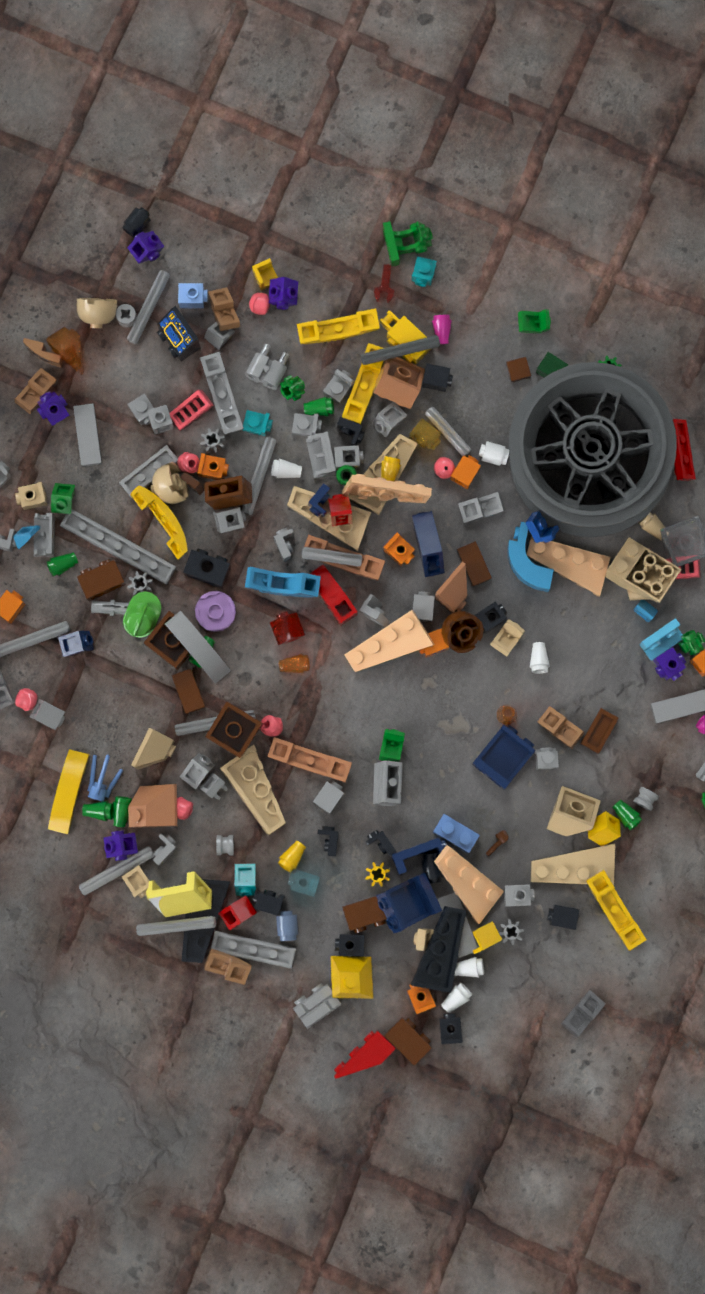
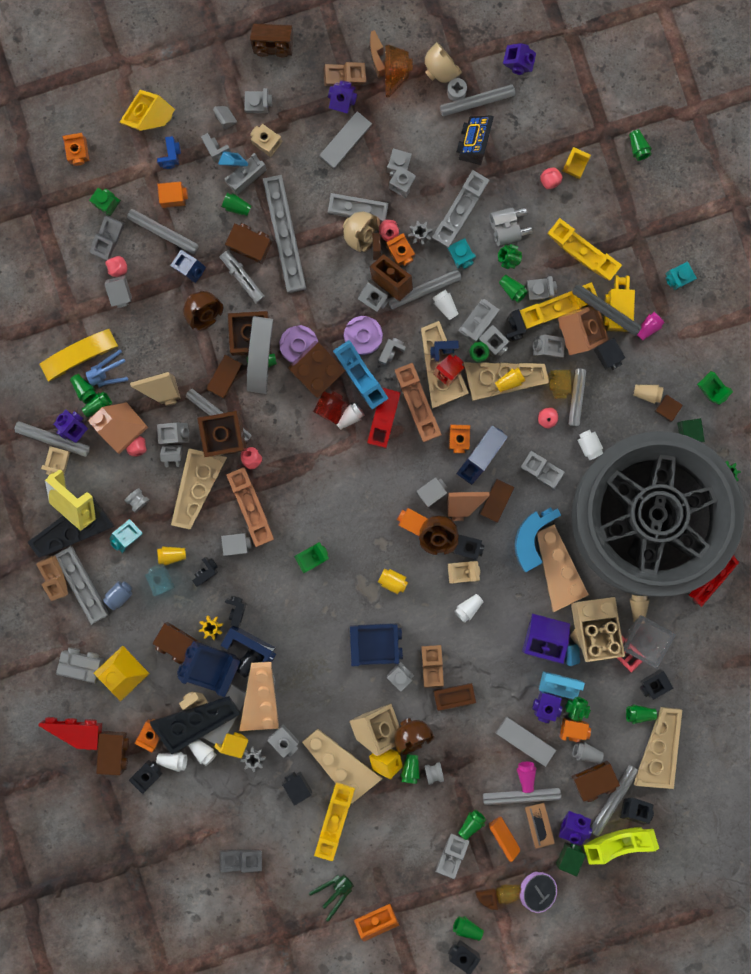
camera: 50 degrees right, 5 degrees up
(62, 498) = (282, 162): green bracket -> none
(120, 661) = (202, 309): none -> reddish brown cylinder
(136, 221) = (532, 35): black brick -> none
(139, 578) = (275, 273): light grey gear -> none
(142, 614) = (249, 294): bright green piece -> none
(146, 498) = (335, 223): yellow slope -> none
(164, 853) = (93, 462): light grey bracket -> none
(176, 925) = (48, 516): light grey axle -> none
(192, 295) = (513, 124): light blue brick -> none
(201, 410) = (431, 190): coral slope -> none
(215, 577) = (324, 323): black brick -> none
(217, 337) = (502, 168): light grey slope -> none
(223, 309) = (523, 156): medium nougat slope -> none
(241, 910) = (95, 552): red brick -> none
(247, 613) = (316, 369): none -> reddish brown brick
(252, 552) = (364, 334): none -> lavender tile
(268, 902) = (123, 566): black brick -> none
(283, 292) = (574, 187): dark purple brick -> none
(295, 664) = (311, 436): clear orange cone -> none
(297, 215) = (640, 146): none -> green cone
(306, 424) = (491, 290): light grey bracket -> none
(307, 617) = (350, 416): none -> white cone
(331, 556) = (410, 393): light grey axle -> none
(357, 950) = (151, 653): black brick -> none
(372, 611) = (397, 456): light grey bracket -> none
(384, 287) = (645, 256): clear red bar -> none
(386, 490) = (493, 390): light nougat wing -> none
(387, 783) = (281, 578): light grey brick -> none
(395, 640) = (388, 492): light nougat wing -> none
(422, 239) = (705, 251): green tile -> none
(456, 833) = (289, 658): medium blue brick -> none
(465, 471) = (559, 435): orange brick -> none
(466, 699) = (393, 581): none -> yellow brick
(493, 374) = (650, 393): none -> tan cone
(502, 718) = (403, 615): clear orange cone -> none
(502, 837) = (315, 694): reddish brown hand -> none
(538, 528) = (563, 527): blue bracket -> none
(601, 789) = (412, 735): none -> reddish brown cylinder
(616, 618) = (547, 638): none -> dark purple slope
(673, 949) = (342, 886): none -> dark green plant

